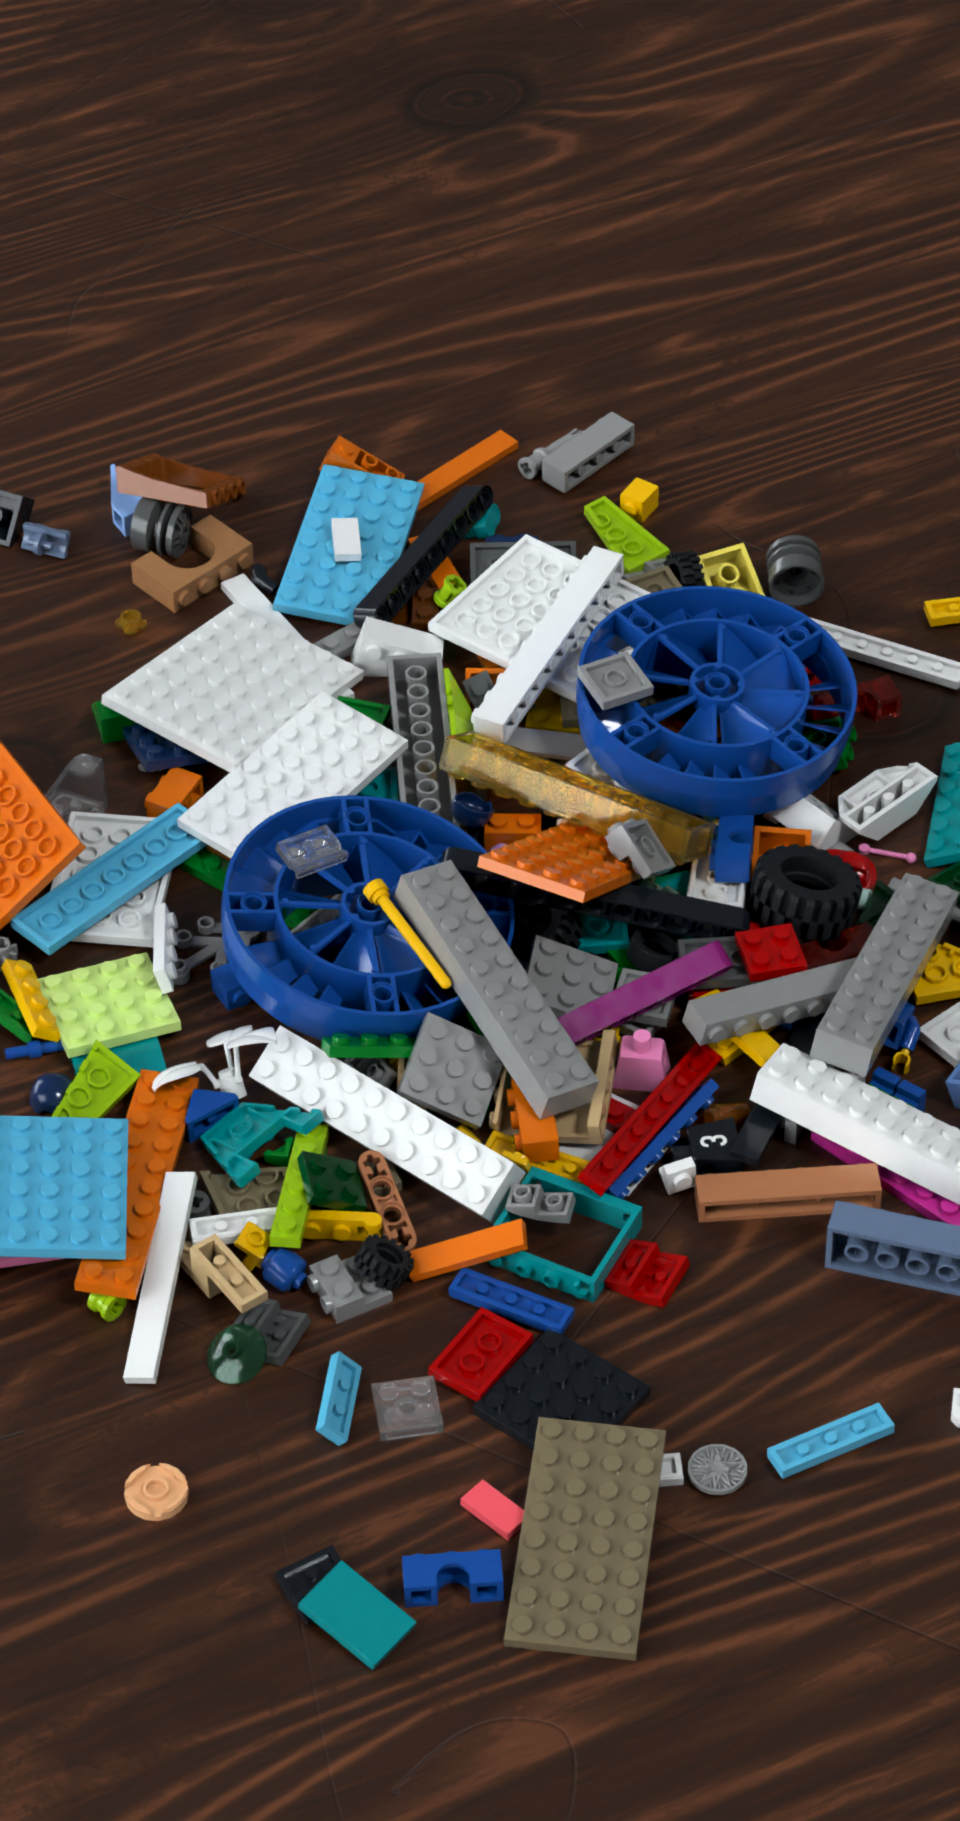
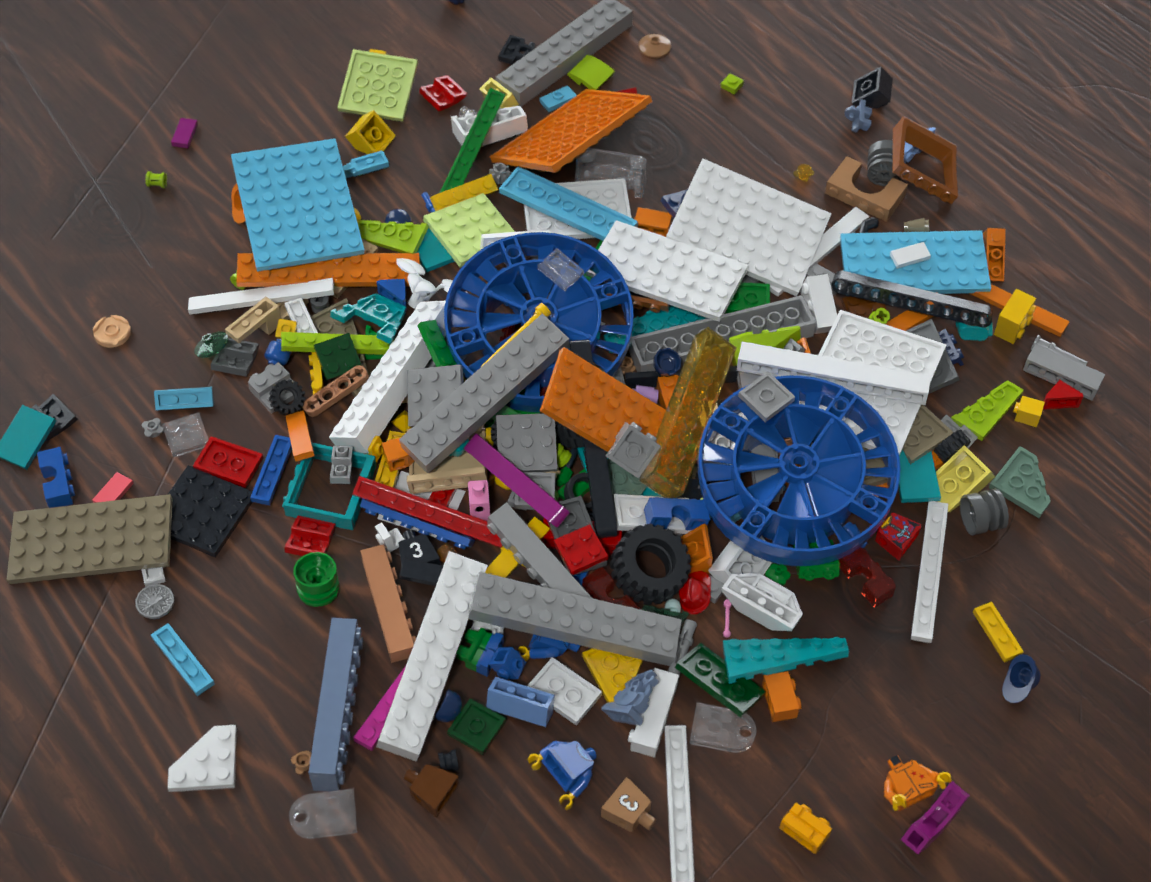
camera: 75 degrees right, 10 degrees up
(282, 529) = (918, 225): none -> dark tan cone
(380, 1454) = (152, 432): none -> light grey plate
(488, 462) = (1015, 316): none -> yellow brick
(621, 464) = (1062, 396): none -> red slope
(737, 1258) = (316, 579): none -> green wheel
(748, 528) = (1023, 482): none -> sand green plate
(829, 792) = (778, 574): none -> green plant
(922, 1070) = (507, 663): none -> blue brick

